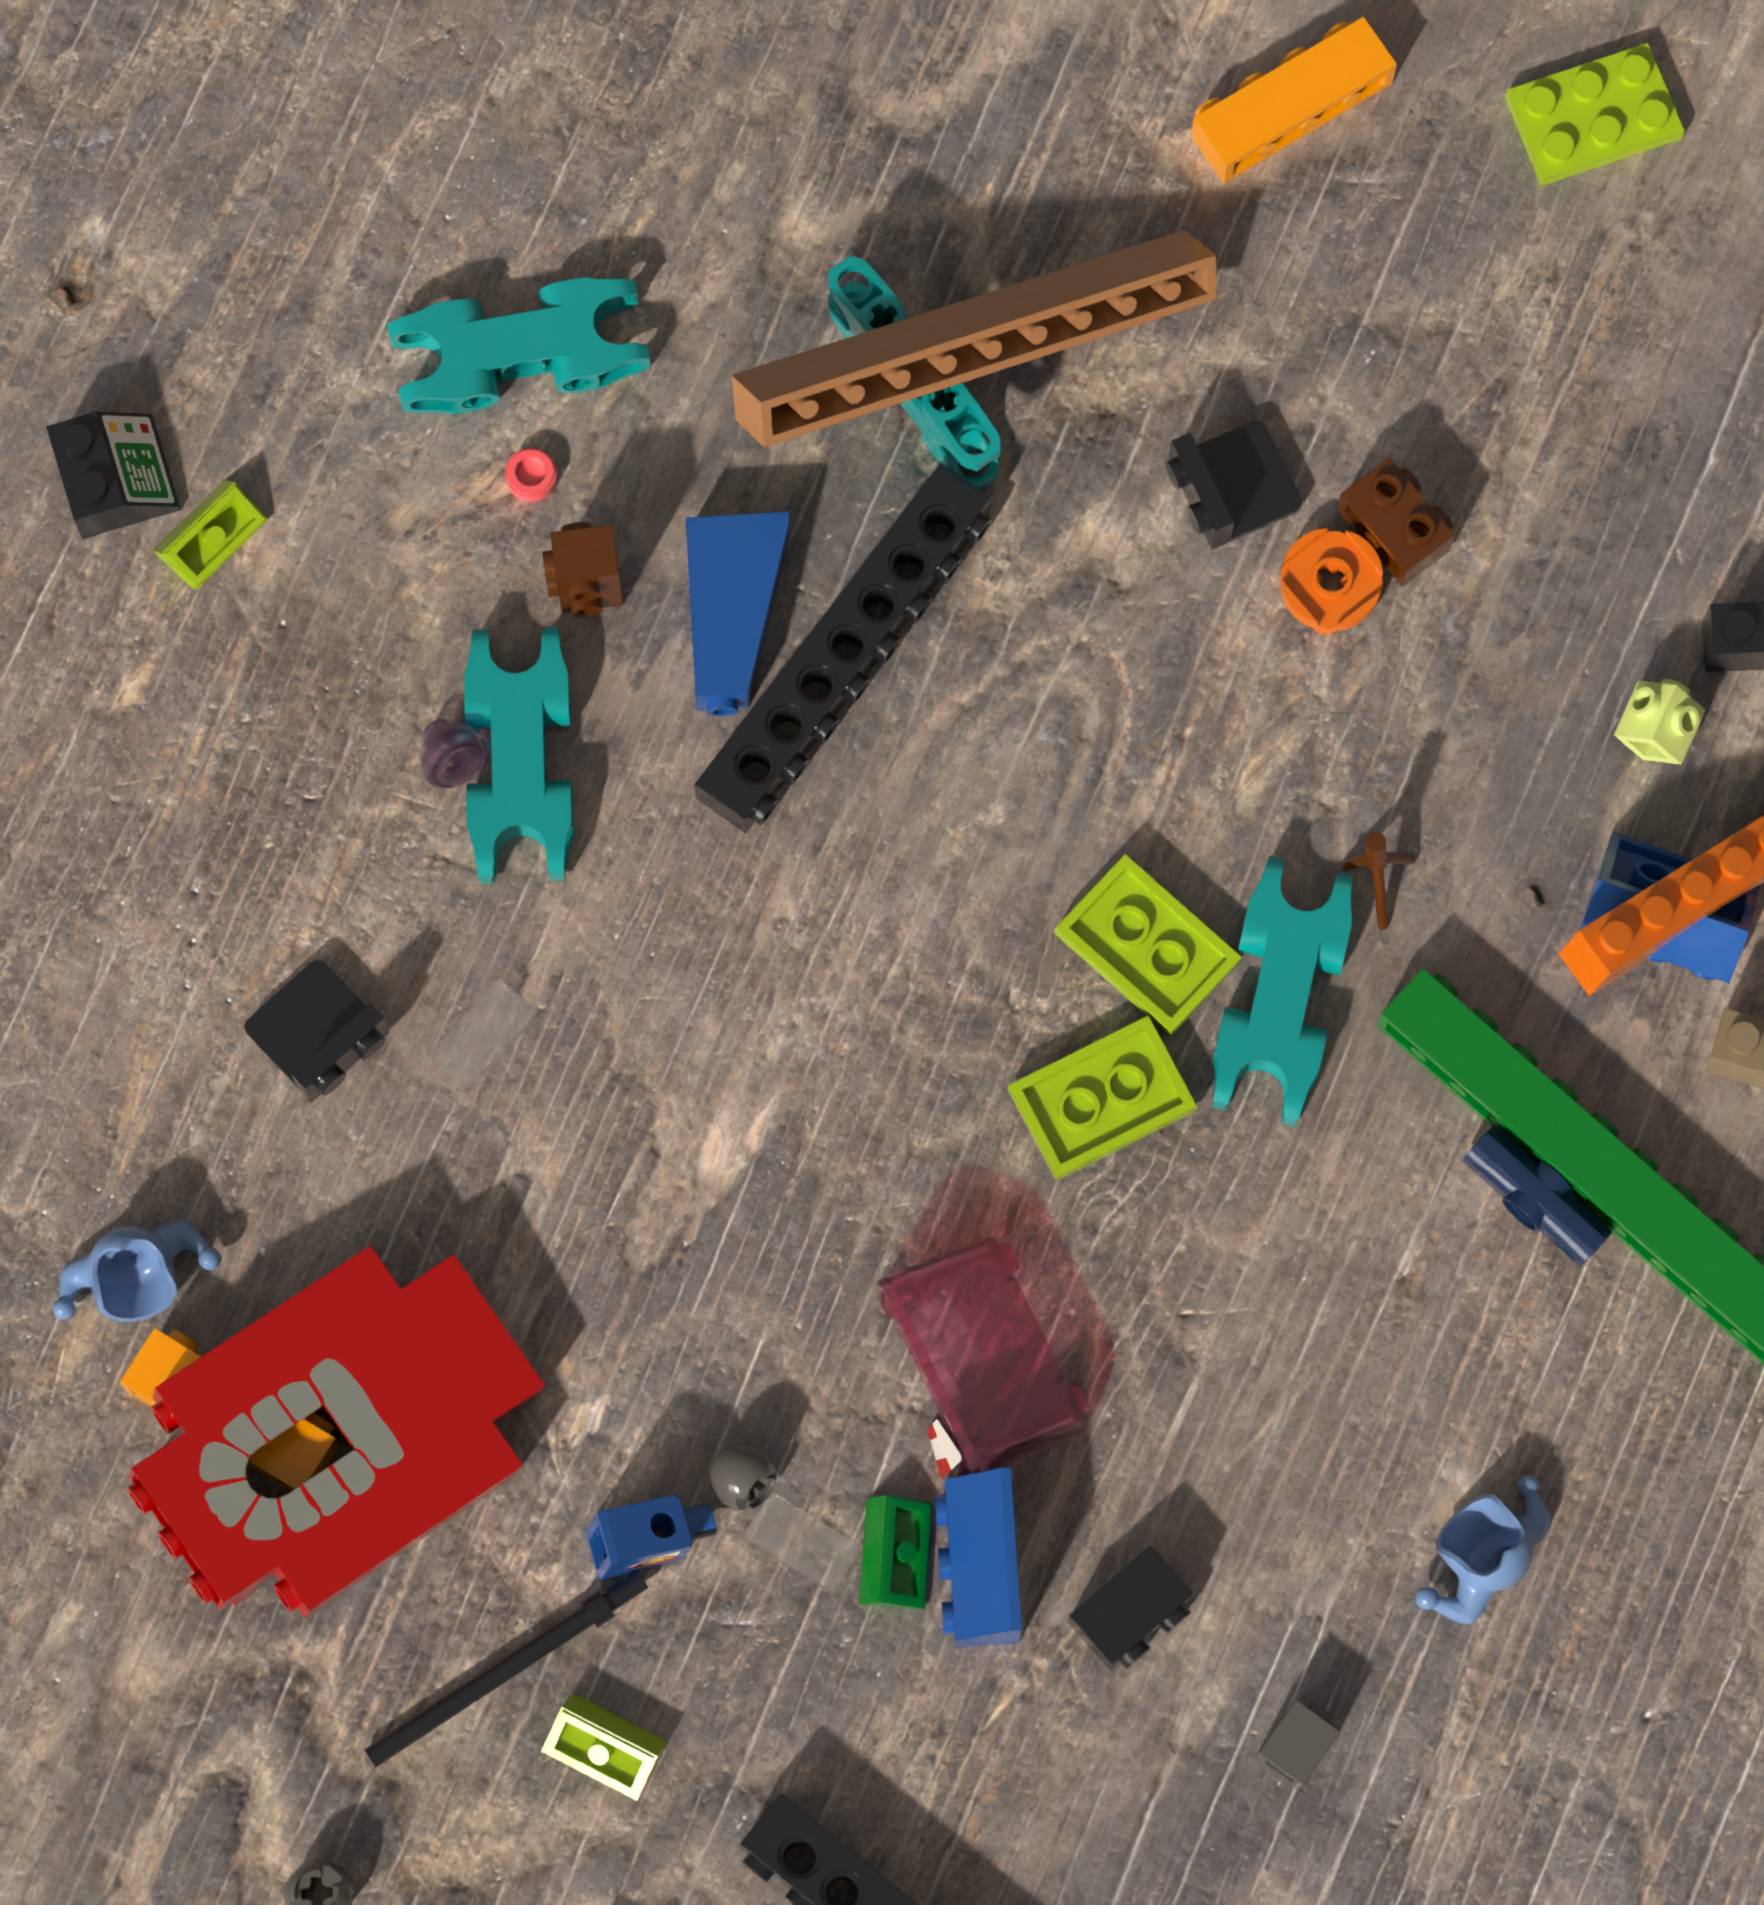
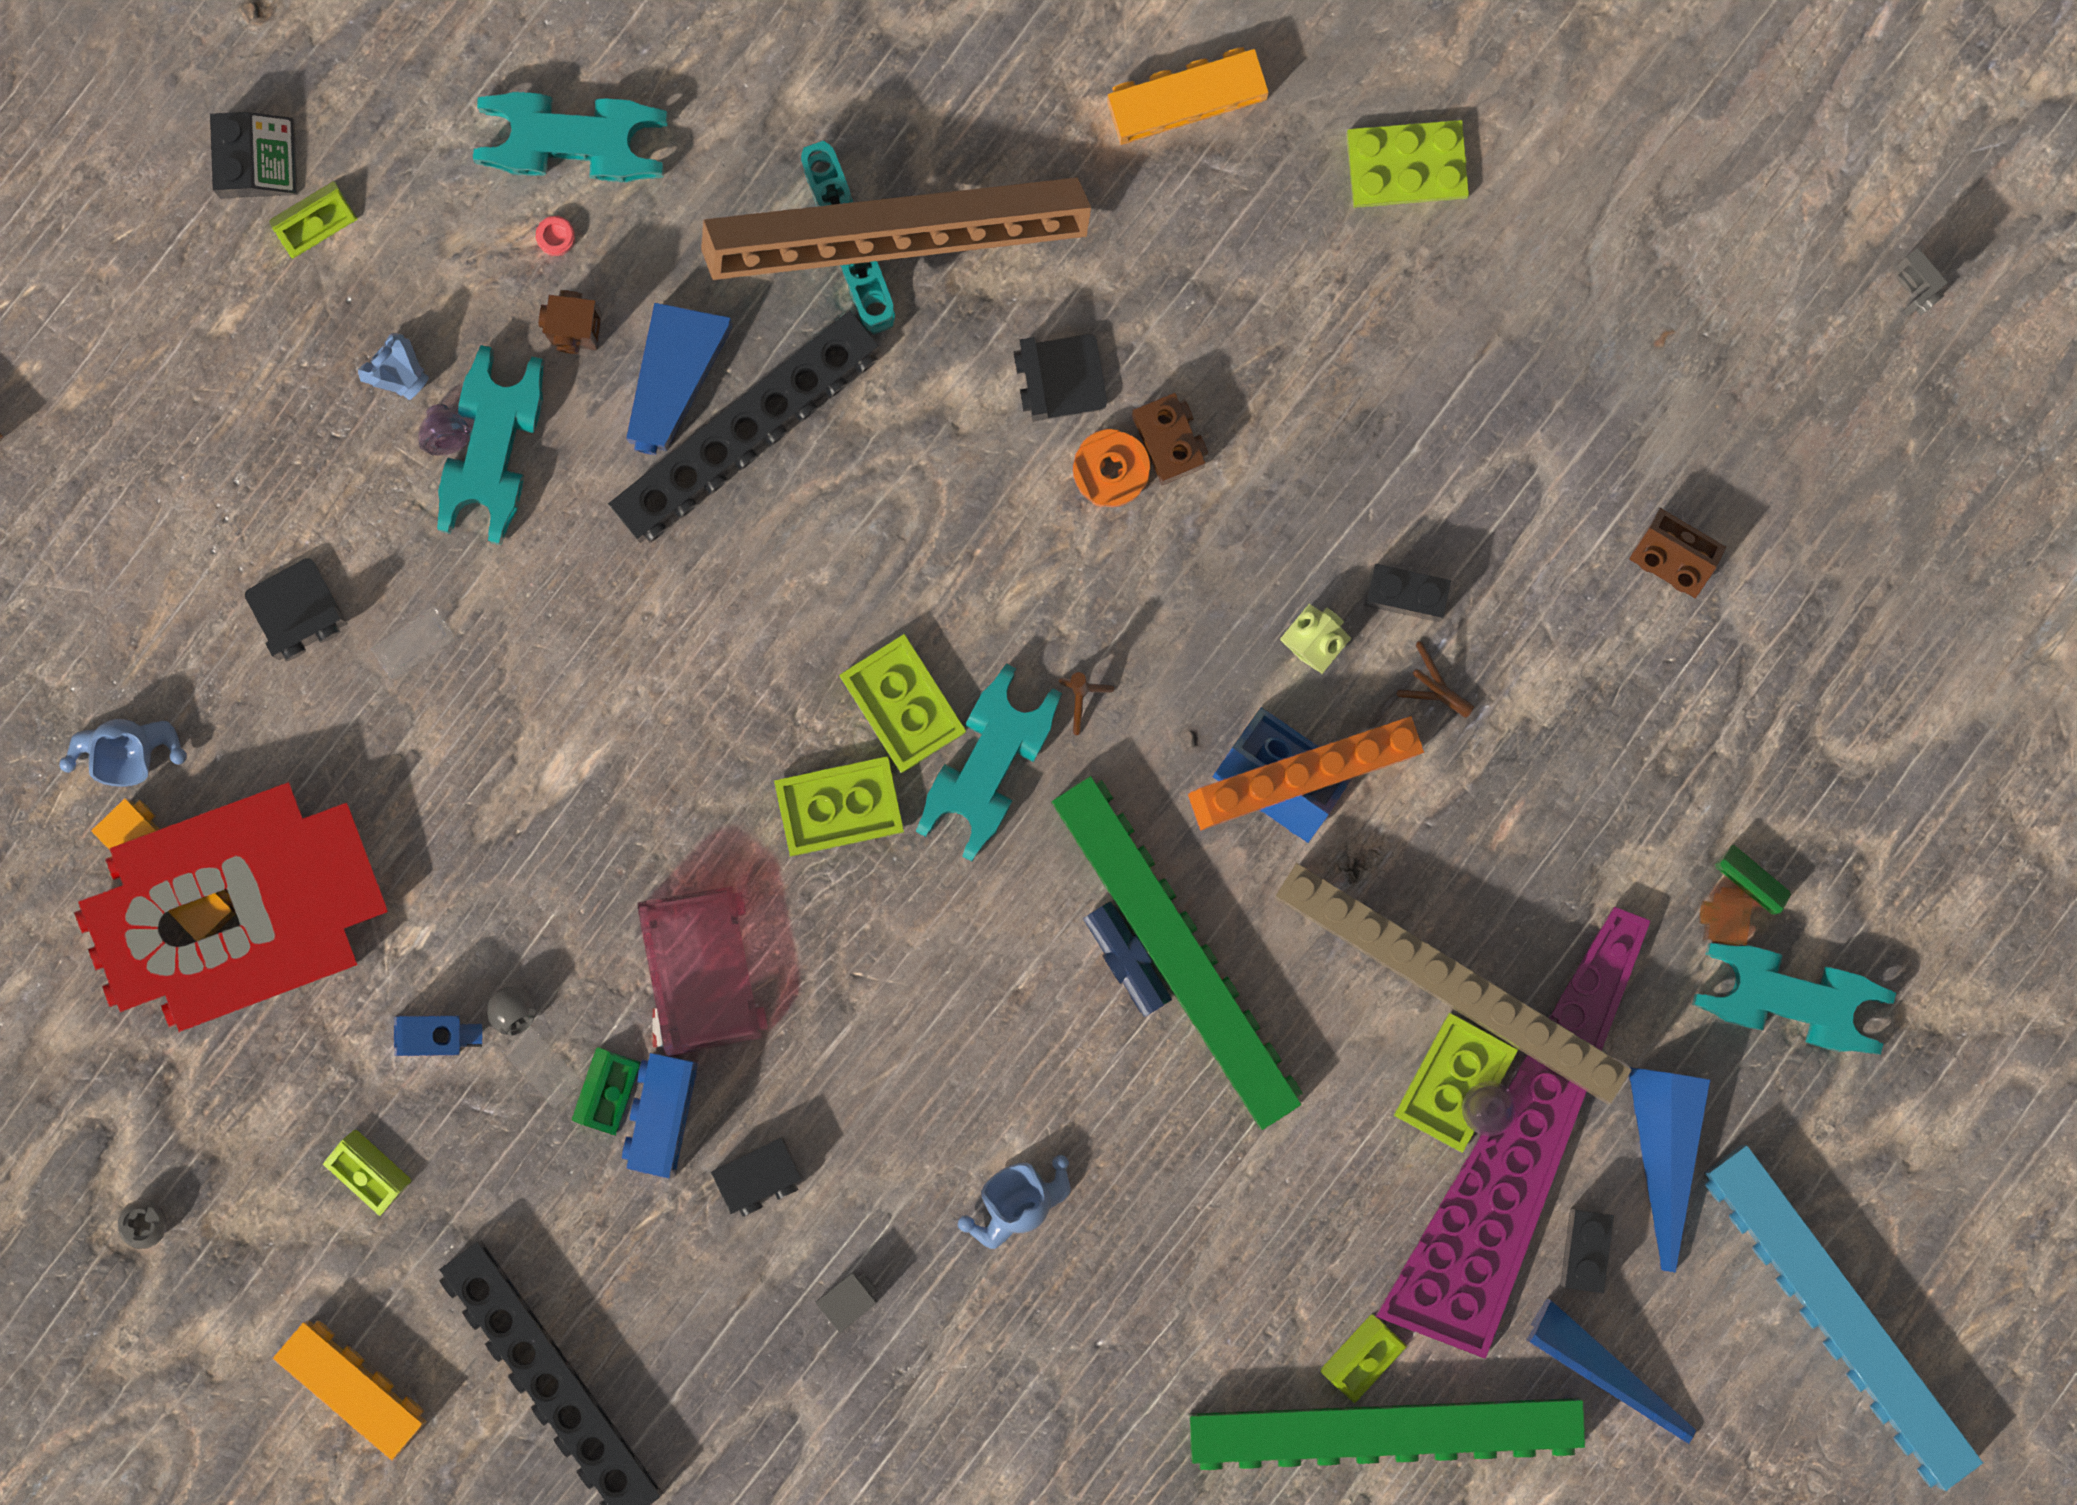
camera: 15 degrees right, 10 degrees up
(368, 688) = (395, 368): none -> medium blue rock
(596, 1610) = (385, 1076): black bar -> none

